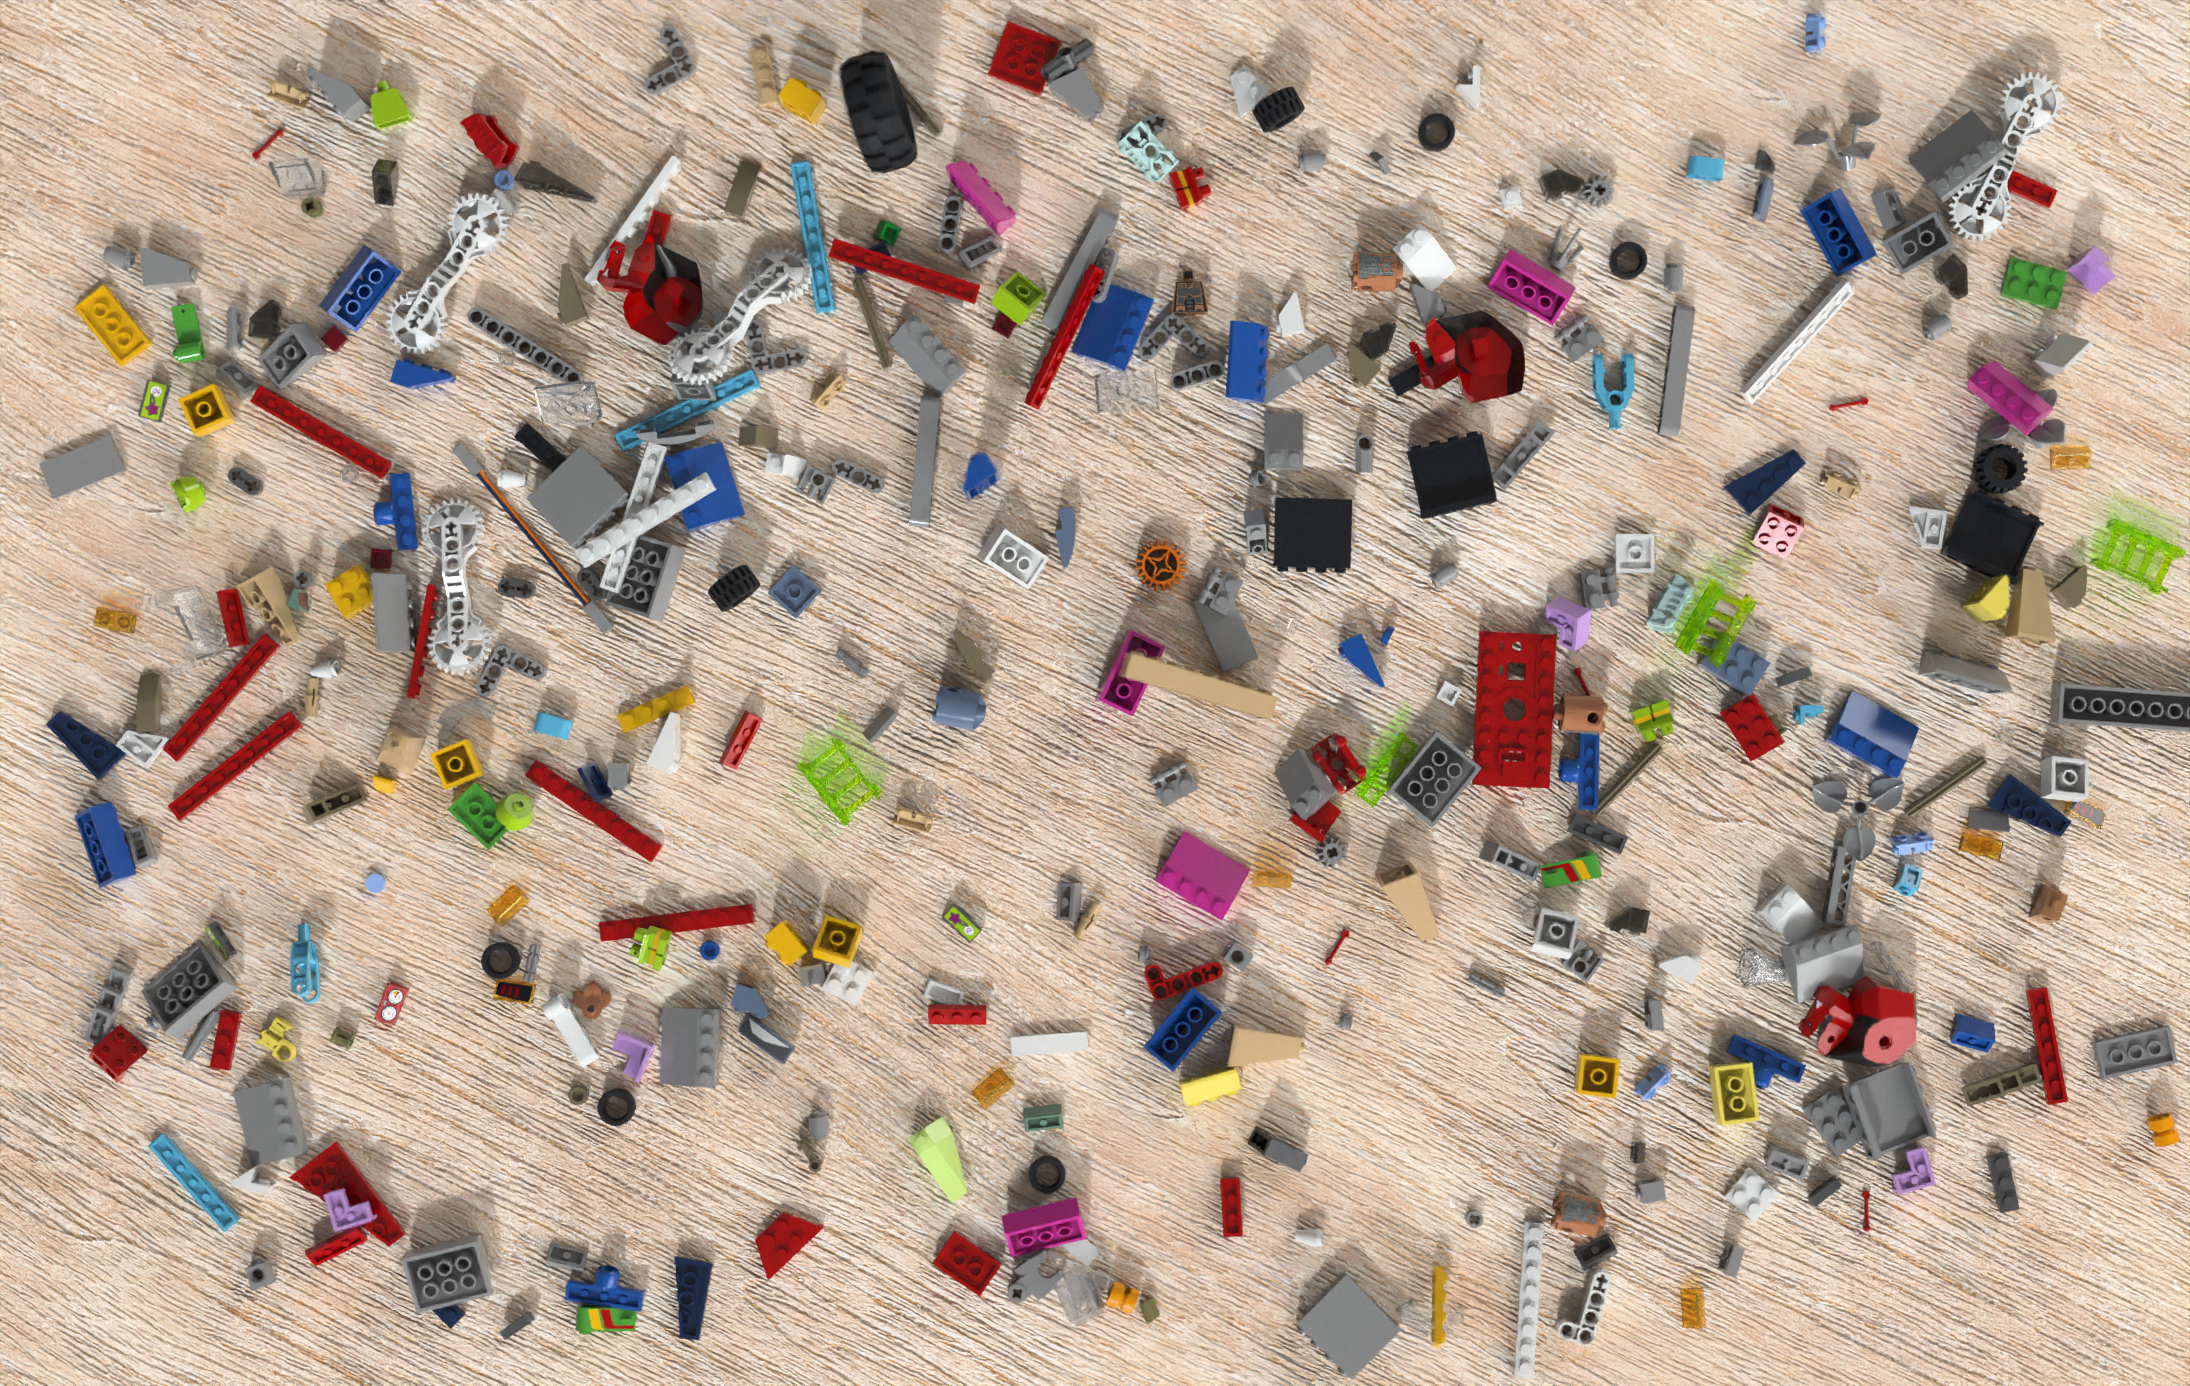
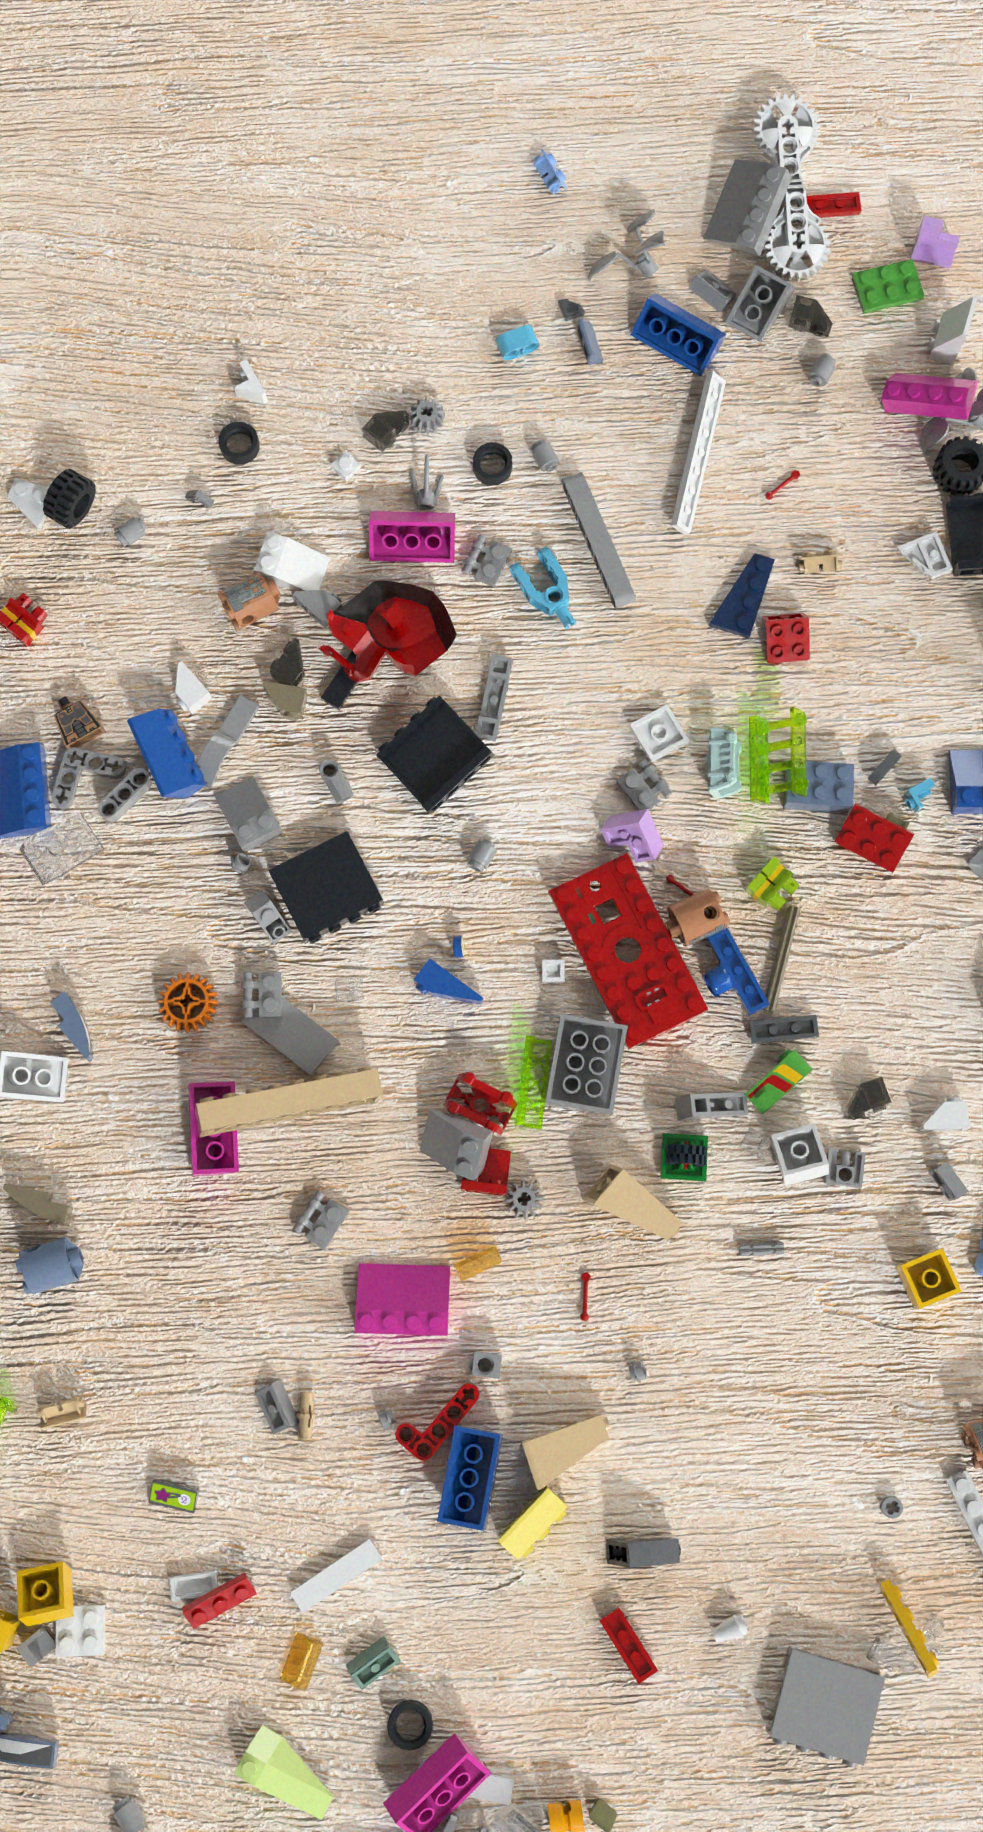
camera: 30 degrees left, 10 degrees down
(1467, 887) = (684, 1157): none -> plate

